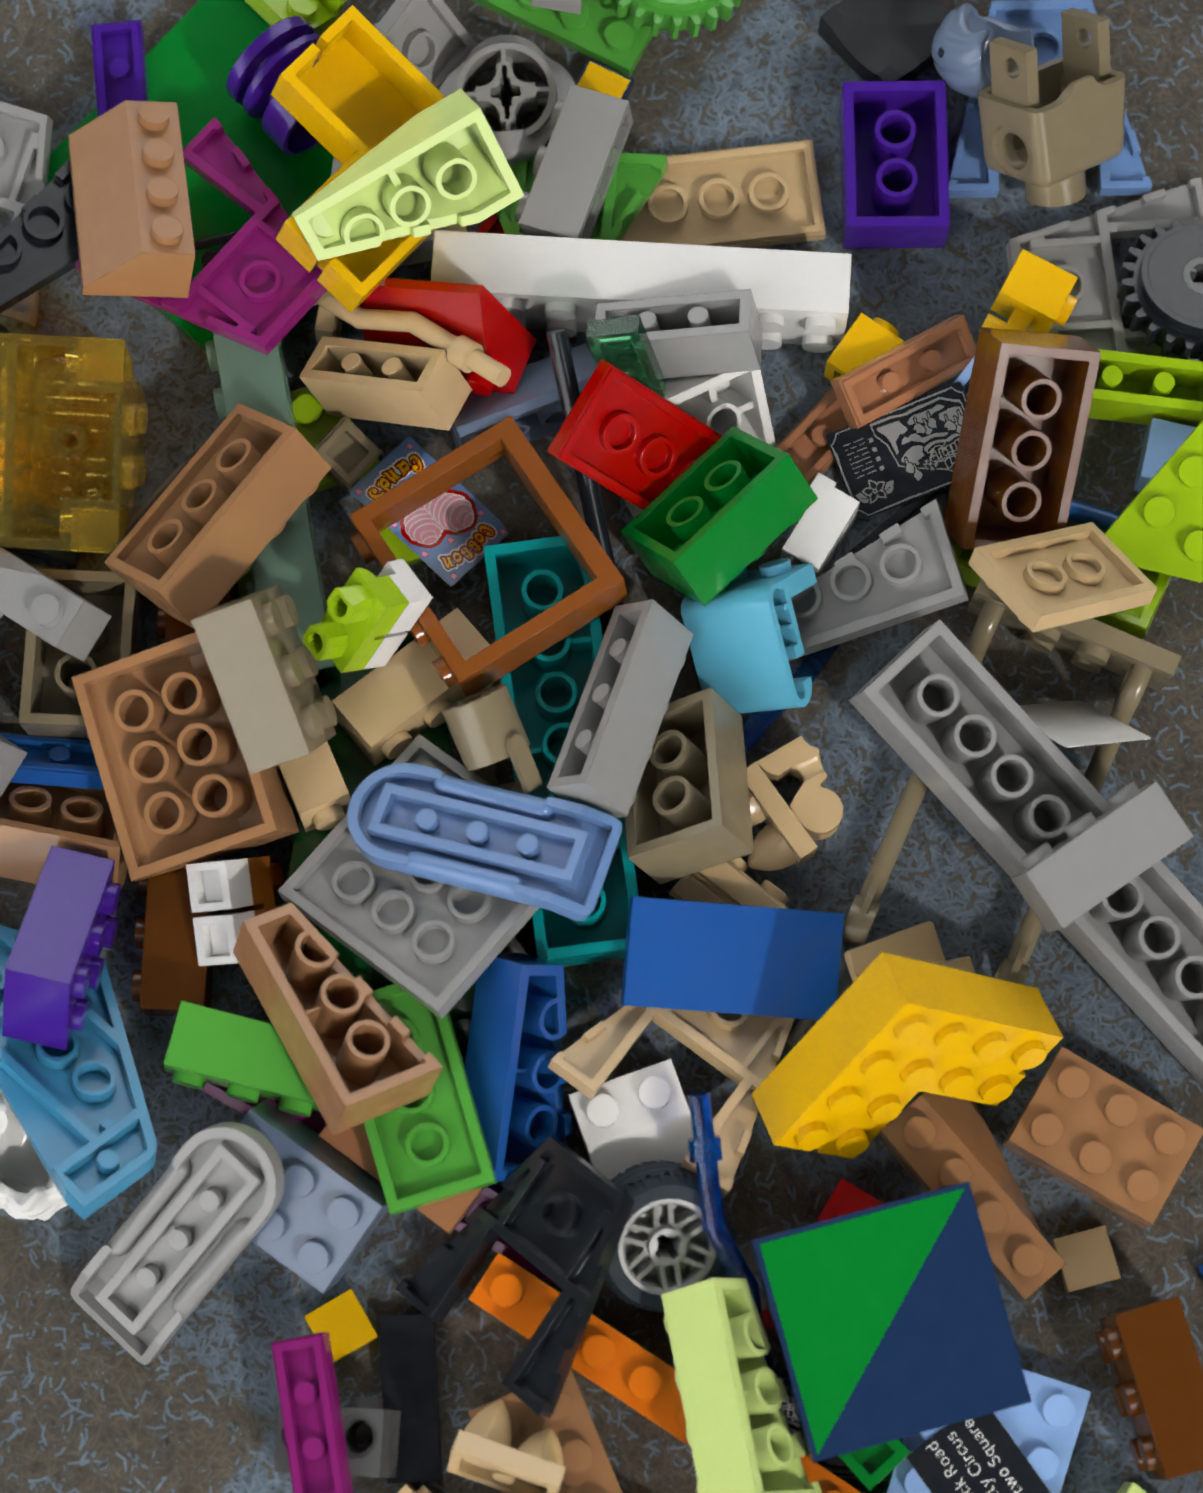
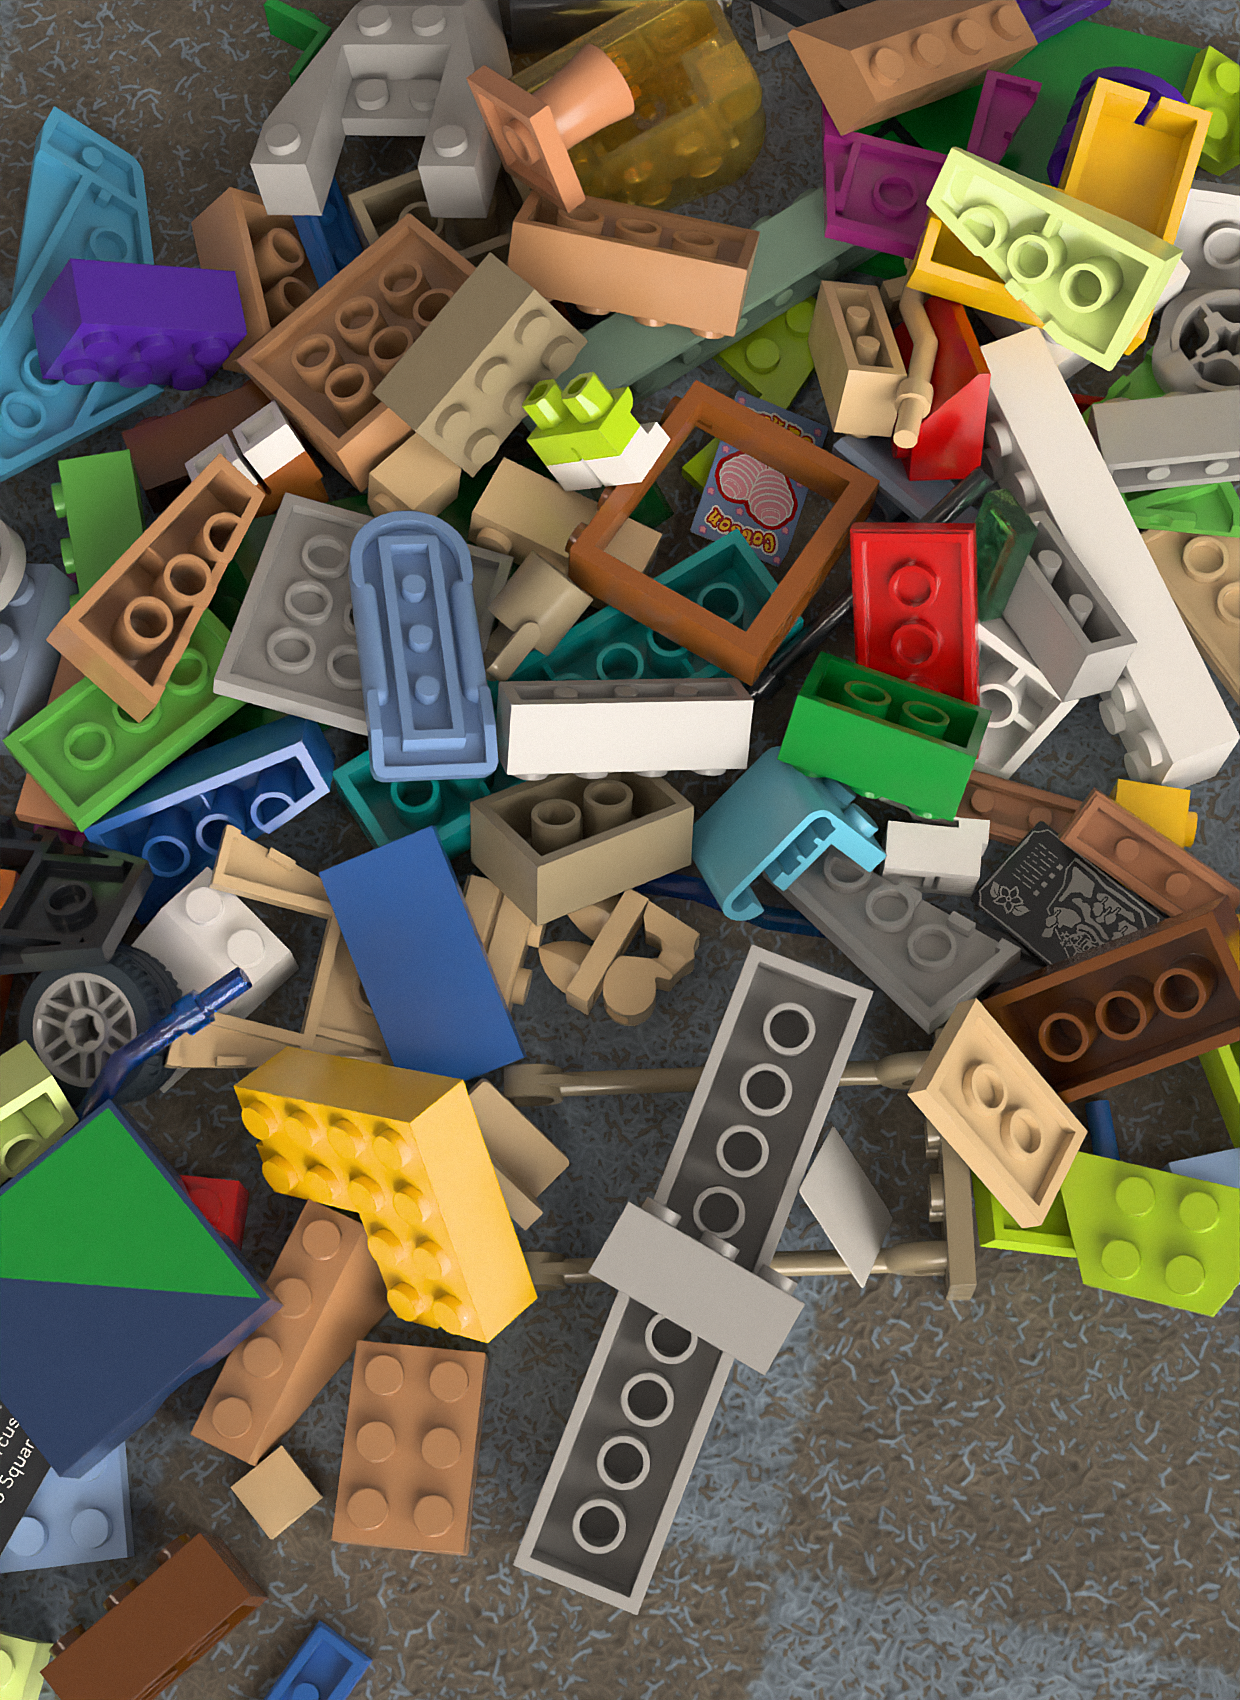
camera: 65 degrees right, 5 degrees down
(78, 531) = (541, 126): none -> nougat plant
(347, 453) = (773, 369): dark tan tile -> none

